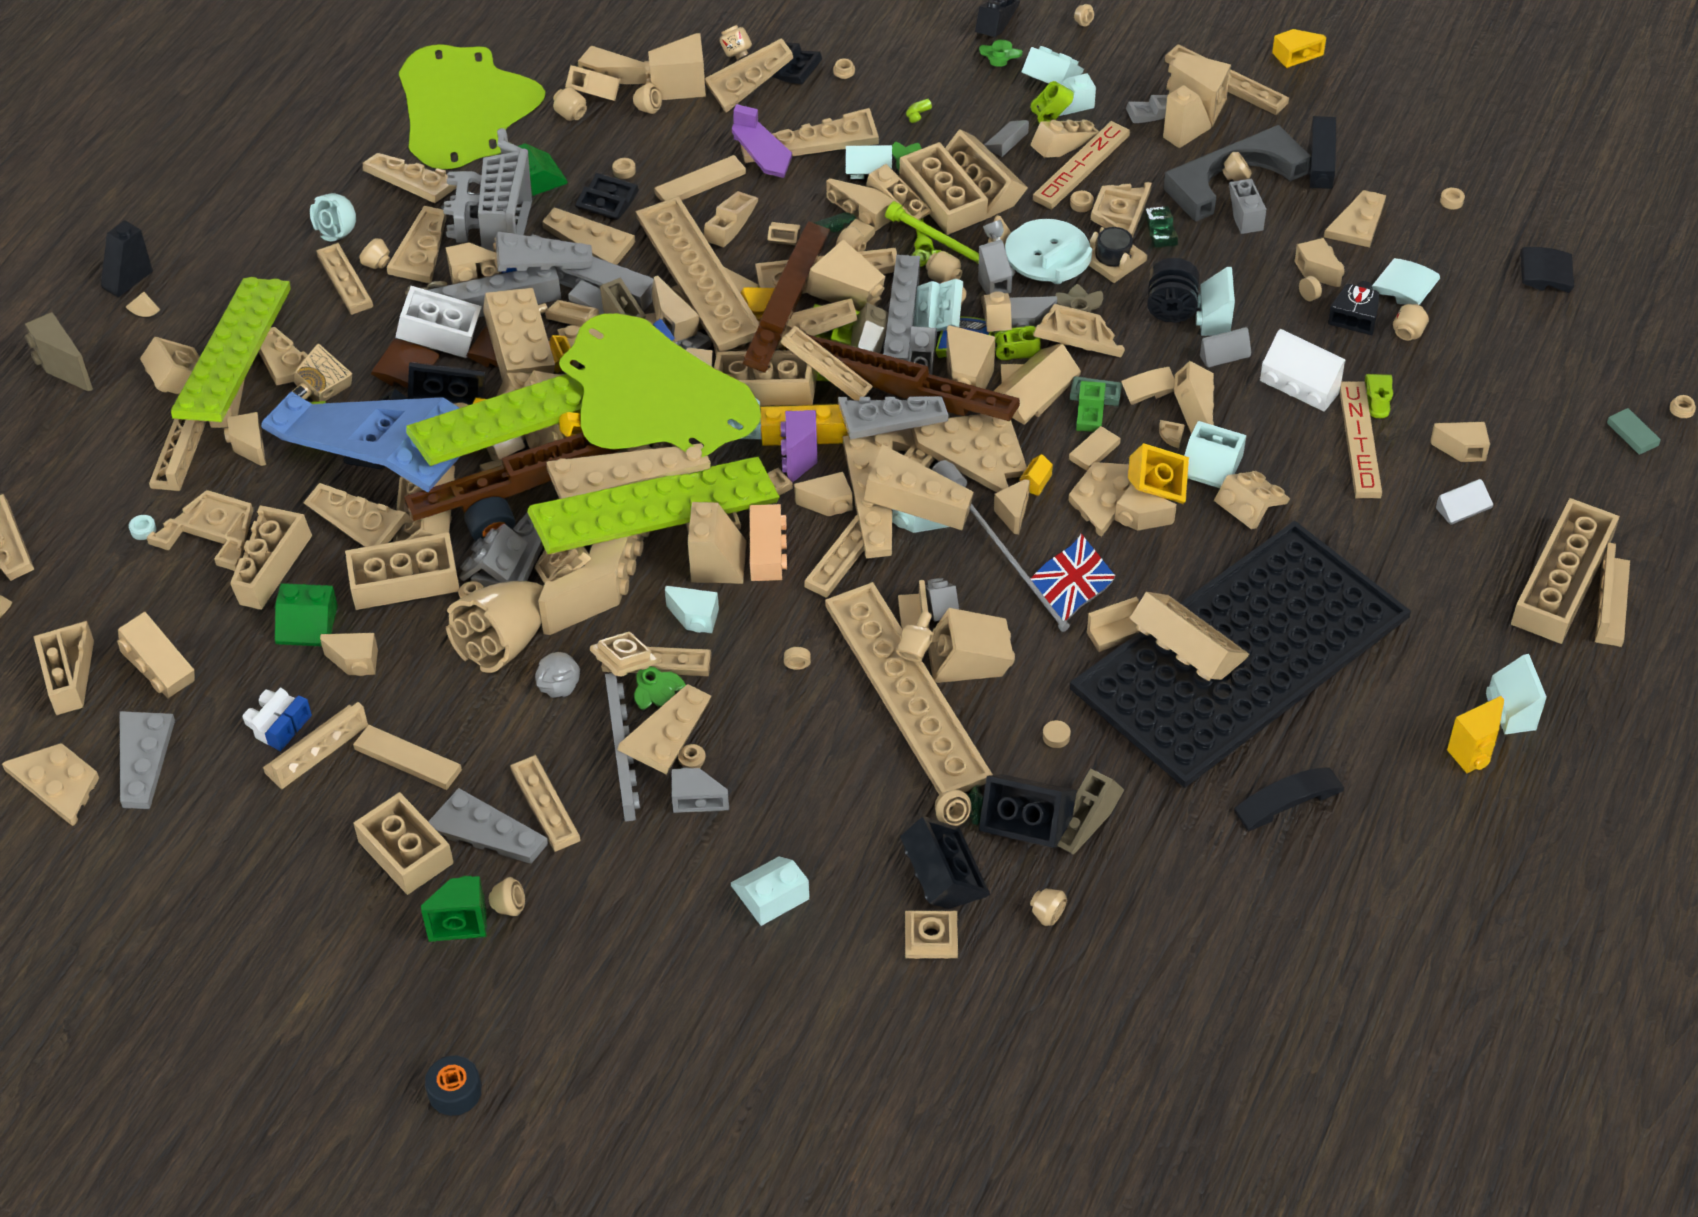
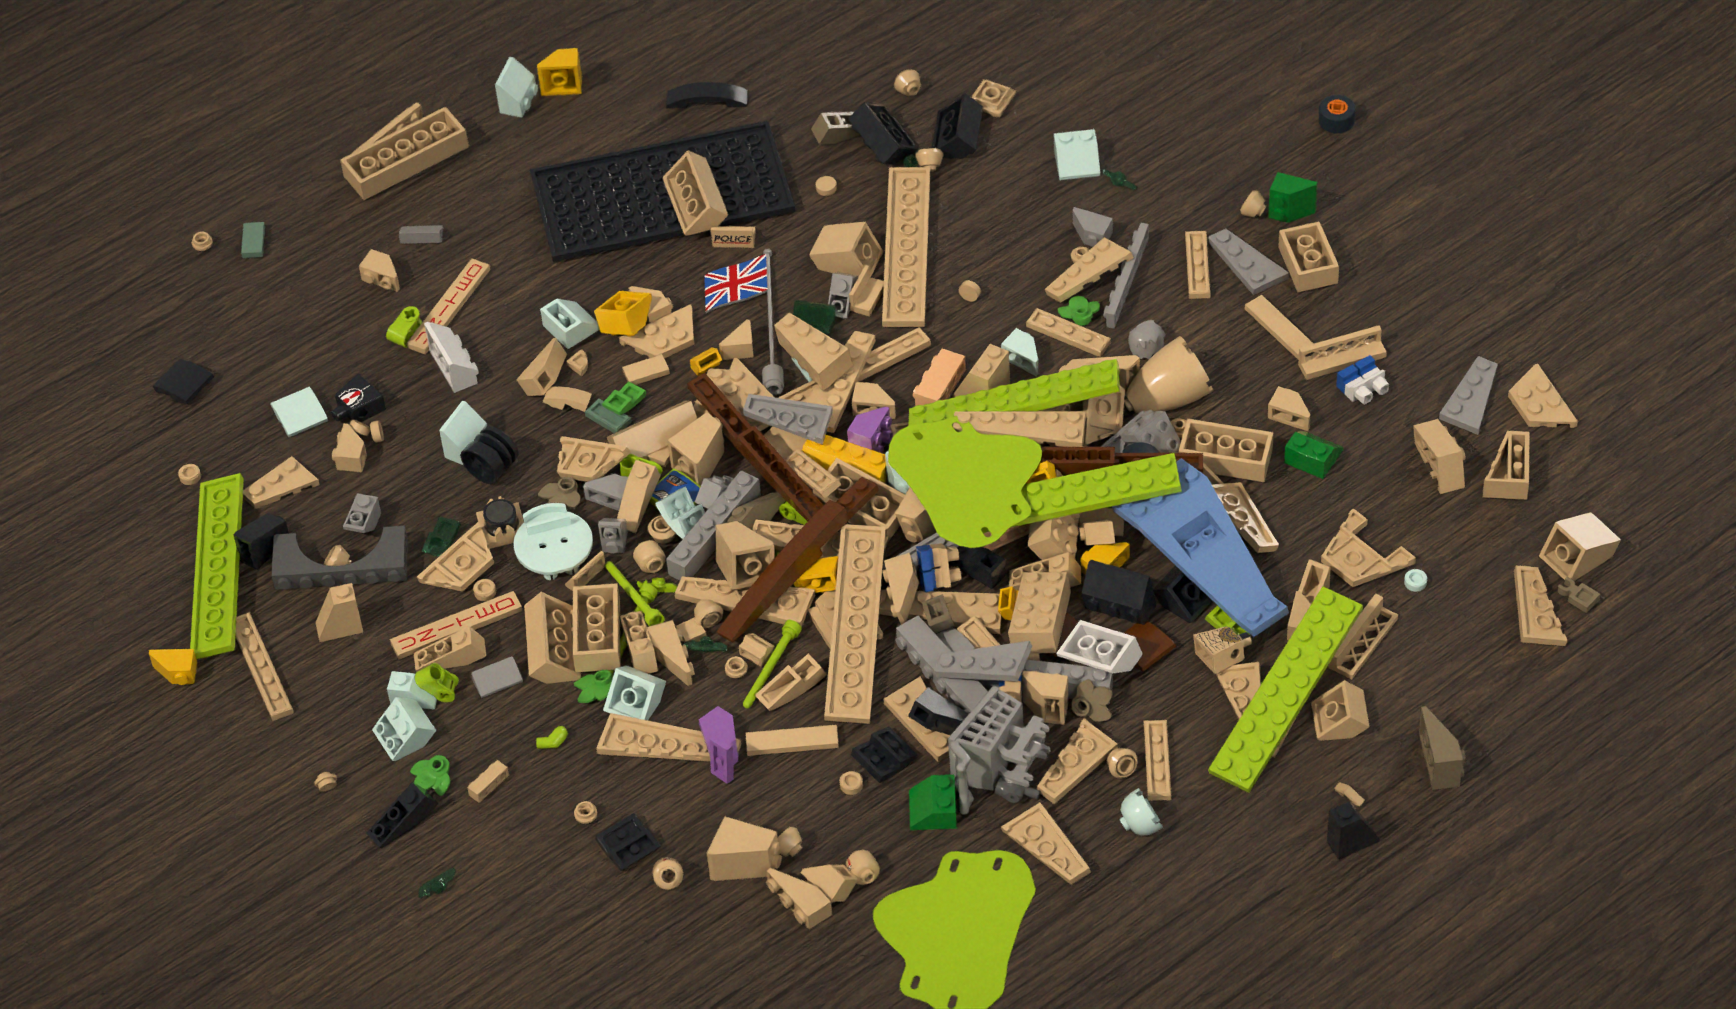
camera: 150 degrees left, 0 degrees up
(248, 478) = (1314, 578): none -> tan slope
(268, 555) = (1321, 504): tan wedge -> none
(565, 223) = (939, 714): none -> black slope
(623, 654) = (1102, 328): tan piece -> none
(702, 881) = (1119, 179): none -> clear green piece
(747, 74) = (676, 831): tan wing -> none
(762, 255) = (790, 630): none -> lime piece
(793, 215) = (736, 662): none -> tan plate
(916, 639) = (883, 256): tan piece -> none
(947, 62) = (488, 781): none -> tan piece
(953, 557) = (816, 314): none -> clear green bracket
(994, 231) = (591, 552): light grey hinge -> none
(1148, 111) = (352, 659): light grey slope -> none
(1203, 77) = (298, 640): tan slope -> none
(1225, 347) = (489, 410): light grey slope -> none
(1249, 496) = (565, 283): tan bracket -> none
(1331, 284) = (360, 427): none -> tan tile
(1352, 135) = (216, 566): none -> lime plate
(1410, 322) = (329, 373): tan head -> none

